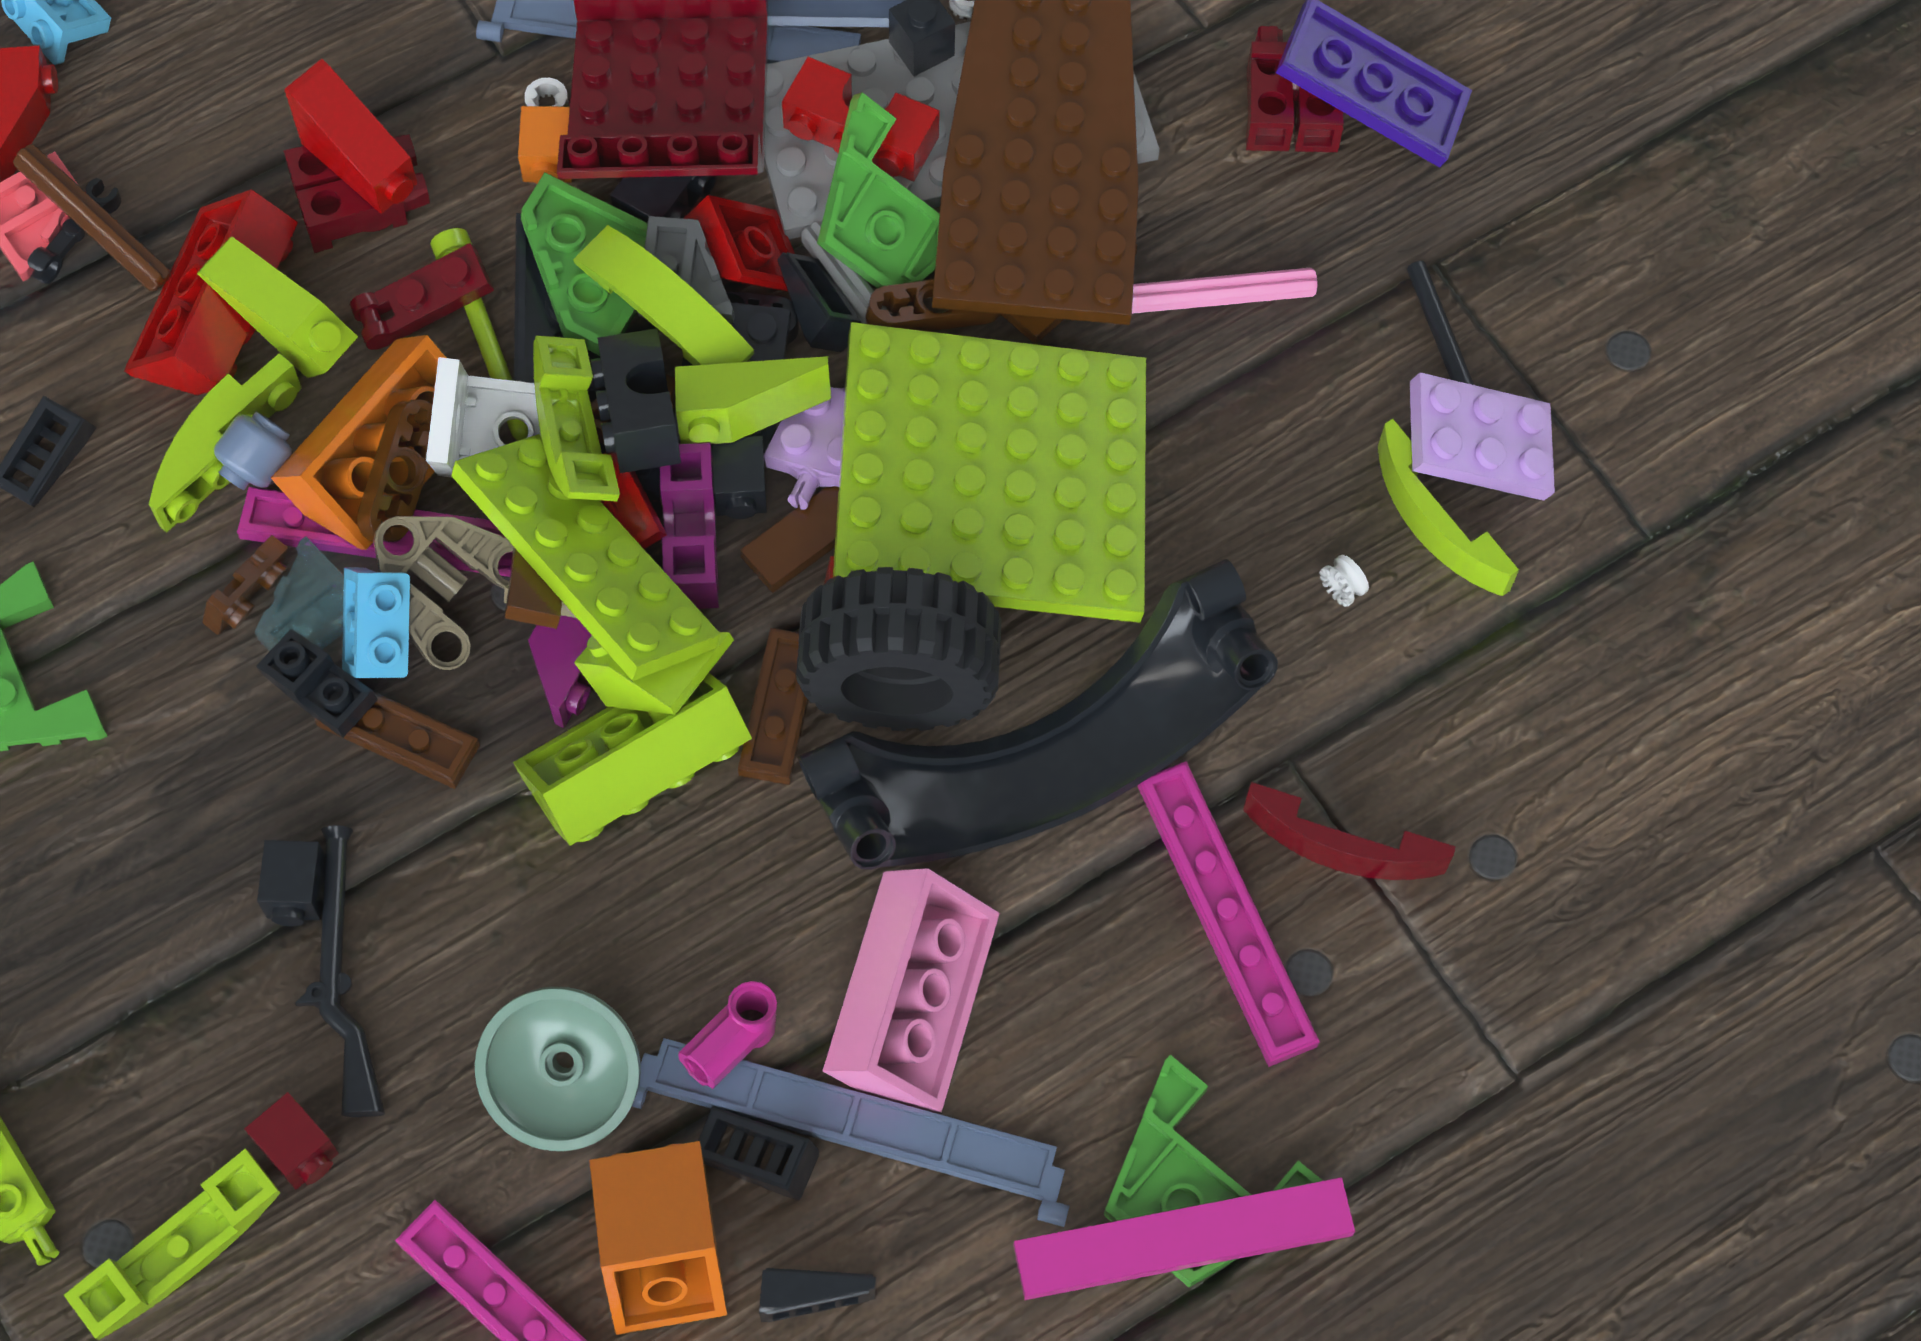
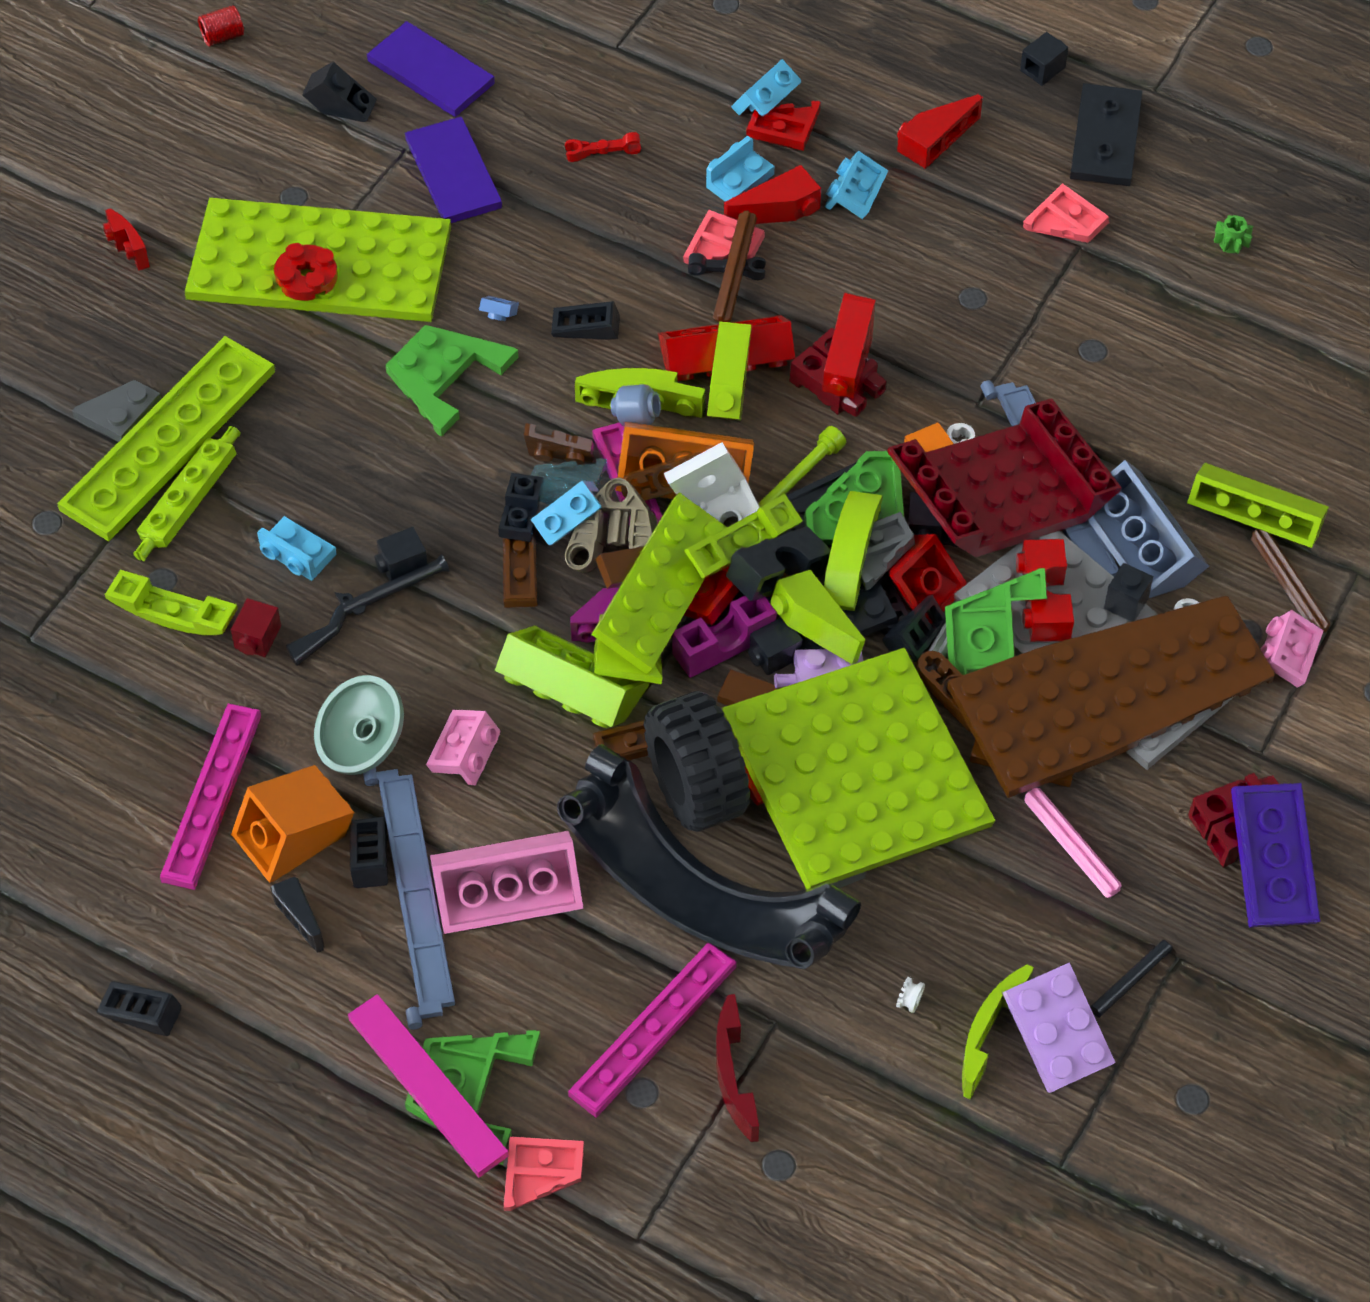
camera: 65 degrees right, 10 degrees down
(180, 1023) = (296, 548): none -> medium azure bracket
(422, 297) = (789, 440): dark red plate -> none
(660, 944) = (464, 745): none -> bright pink bracket
(729, 1036) = (426, 802): dark pink piece -> none
(1369, 1150) = (540, 1168): none -> coral wing

